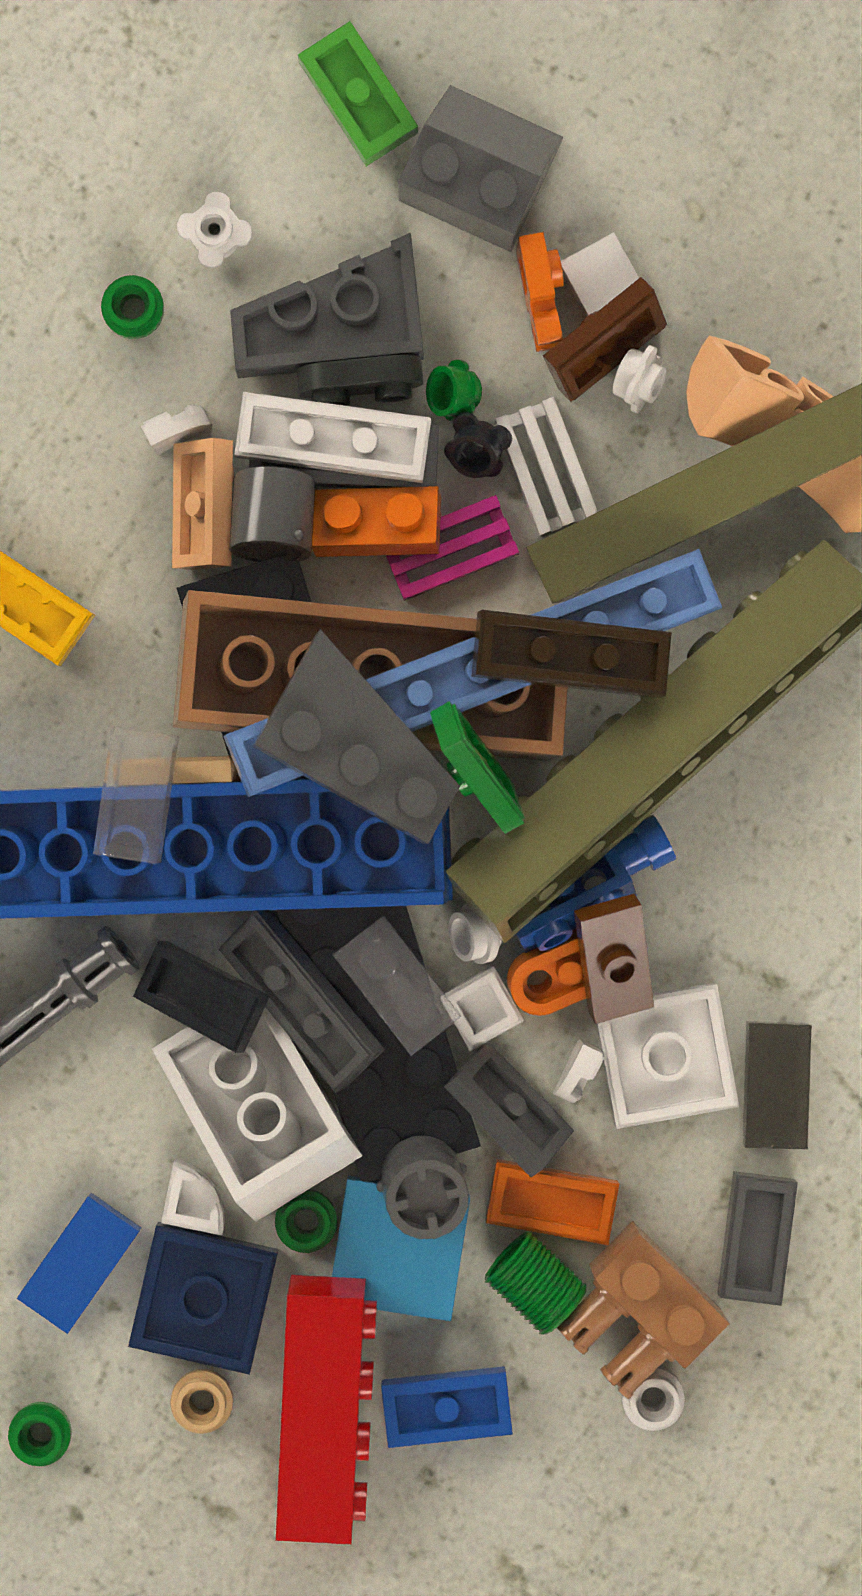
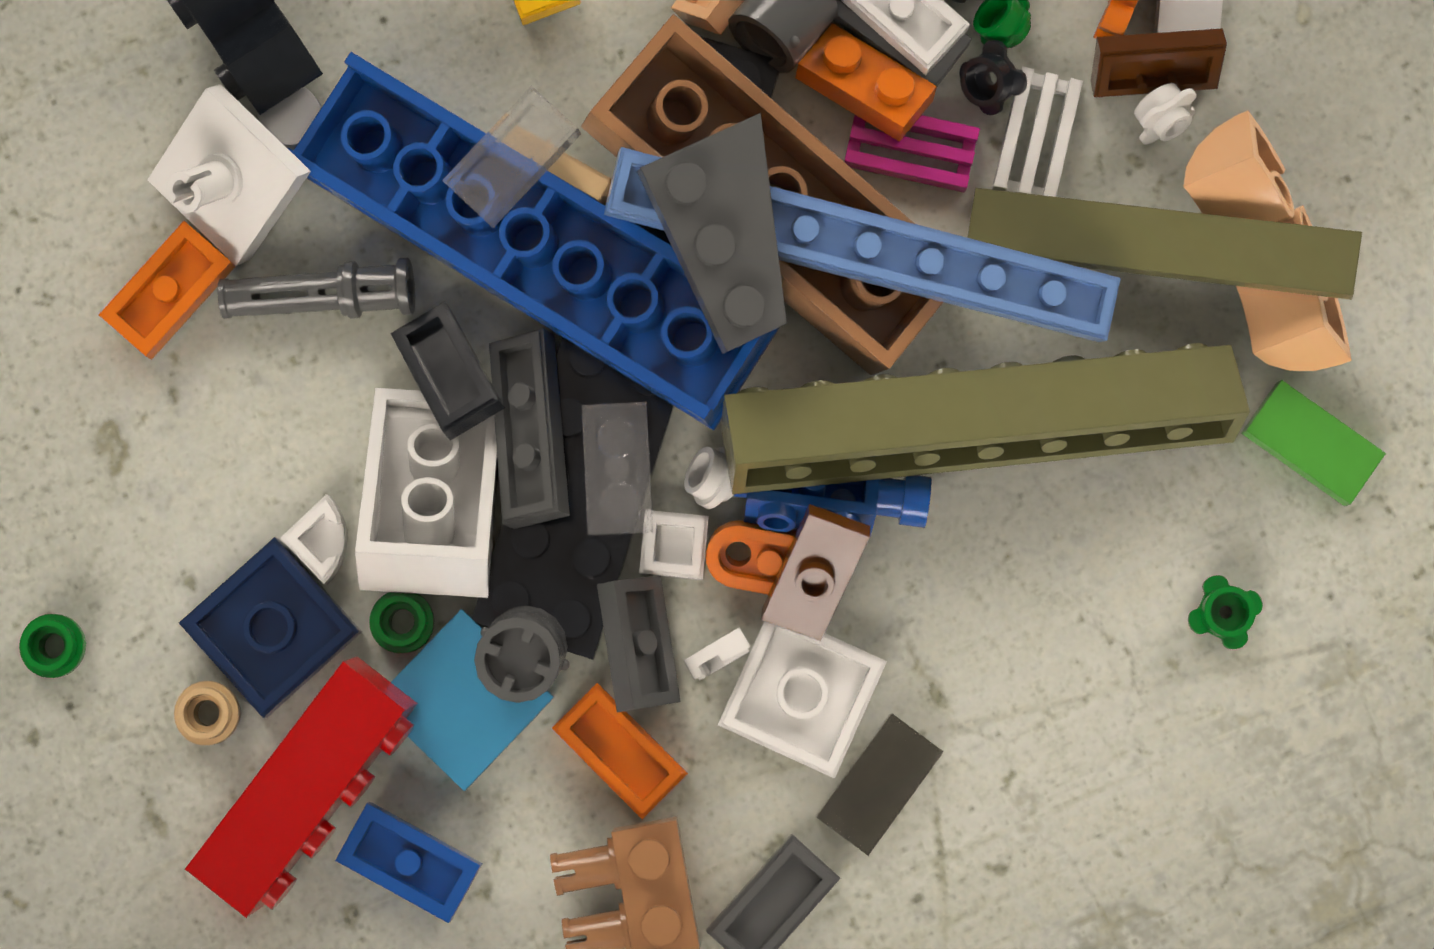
camera: 30 degrees right, 5 degrees down
(79, 1263) = (188, 525): blue tile -> none
(476, 767) = (810, 323): green plate -> none
(535, 1283) = (558, 807): green piece -> none
(571, 654) = (954, 285): dark brown tile -> none

